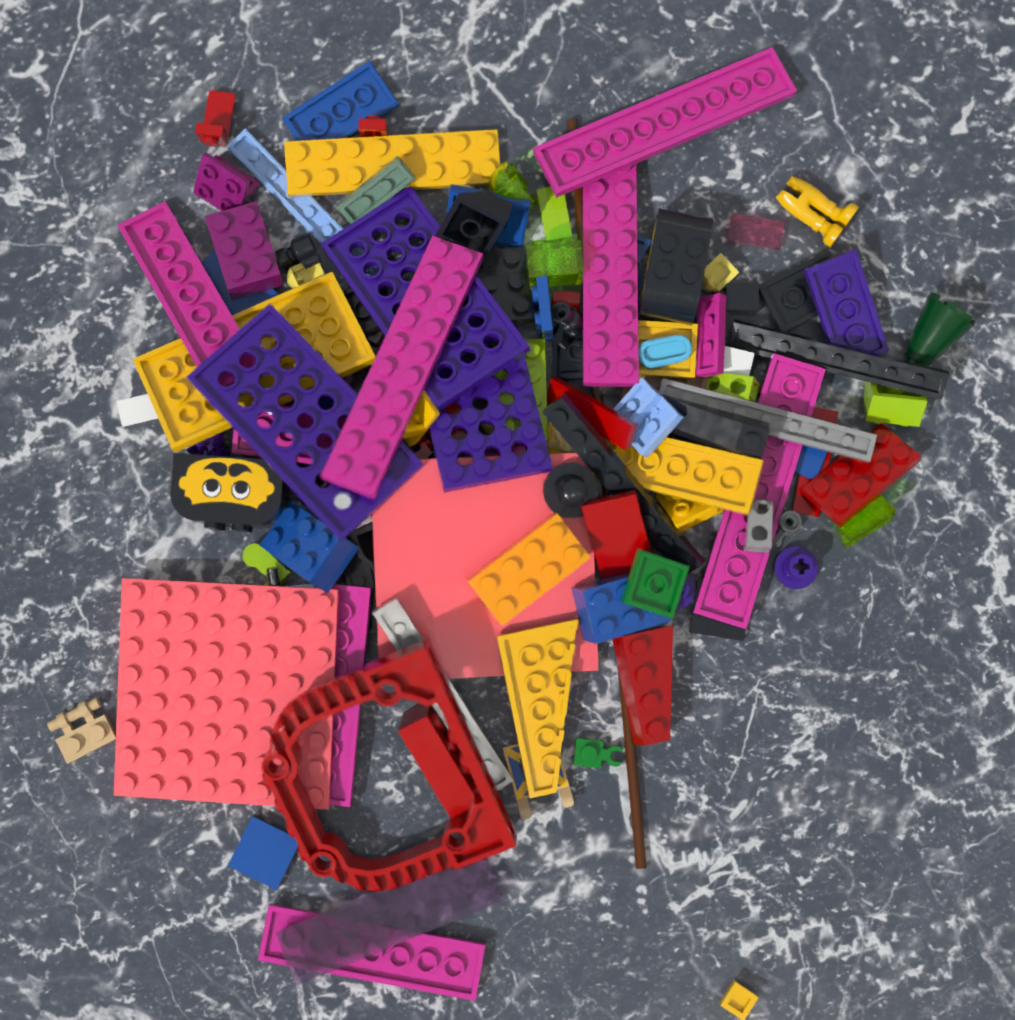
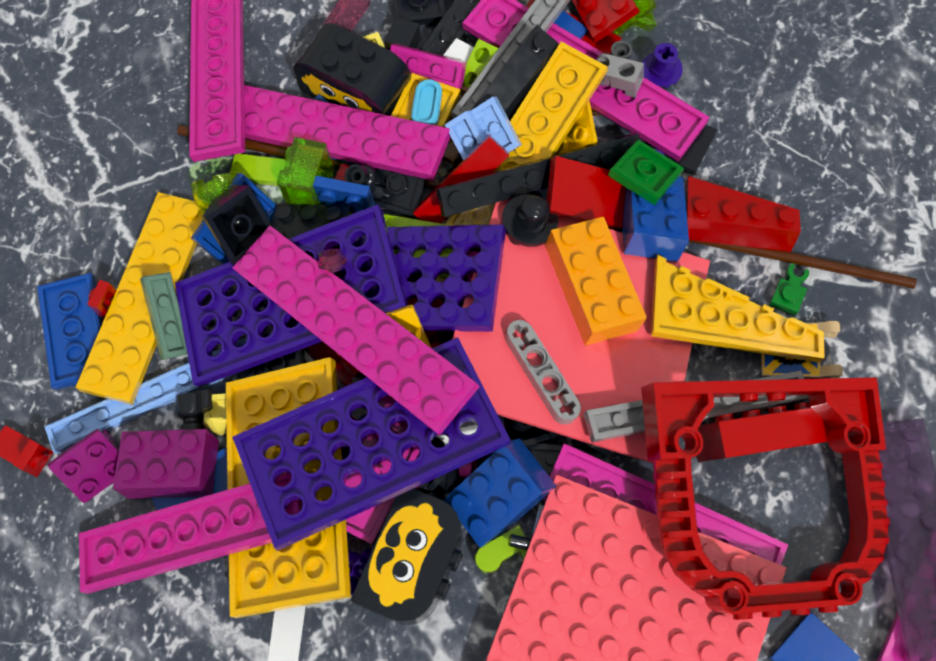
camera: 70 degrees left, 15 degrees down
(424, 549) = (538, 373): none -> light grey beam
(459, 325) = (331, 260): none -> clear pink plate

